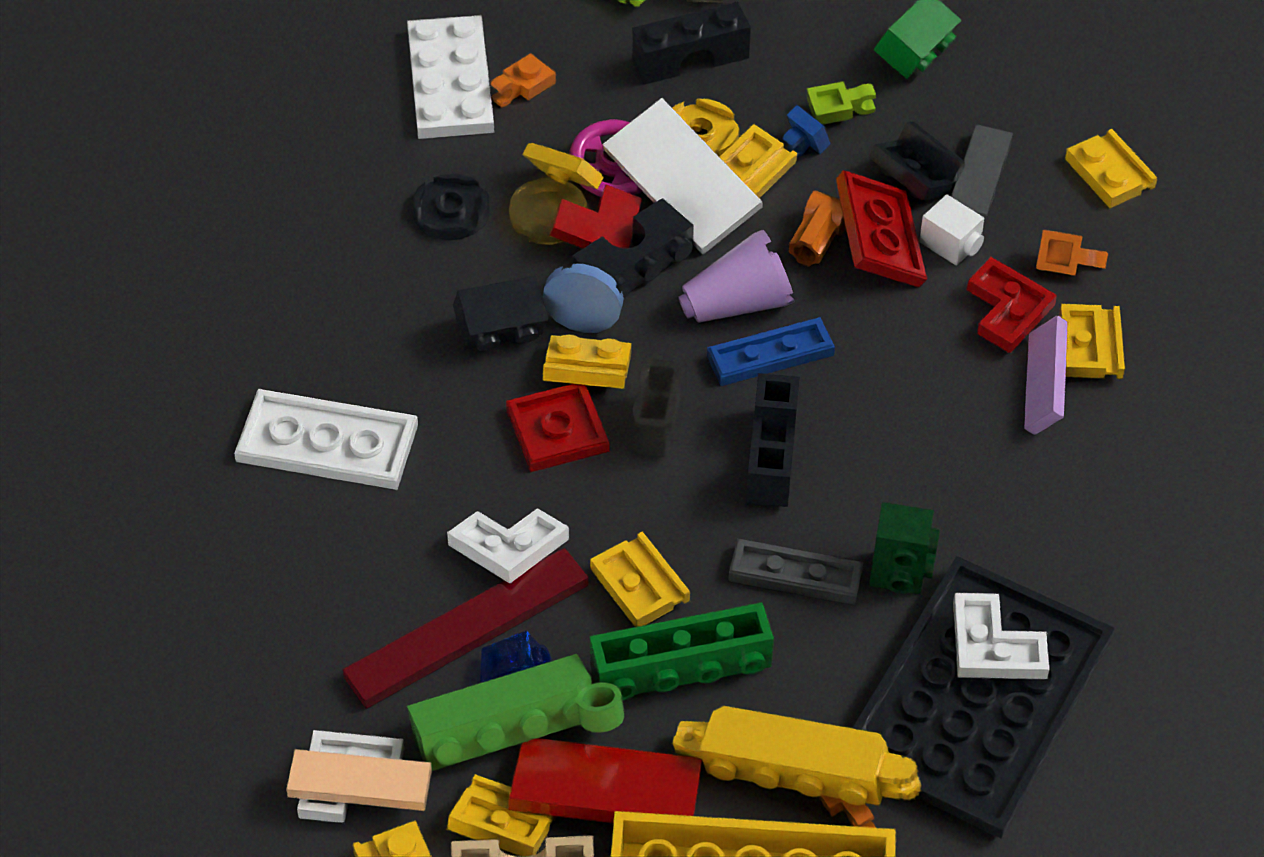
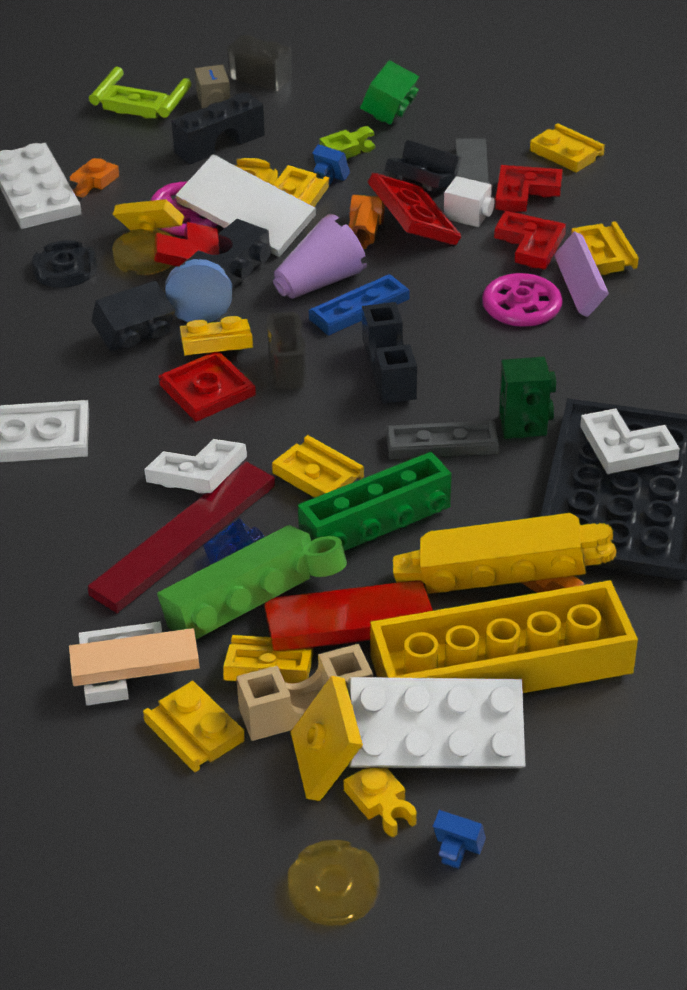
camera: 15 degrees left, 10 degrees down
(948, 414) = (522, 299): none -> dark pink plate
(1030, 212) = (519, 182): none -> red plate
(1063, 251) = (558, 199): orange plate -> none

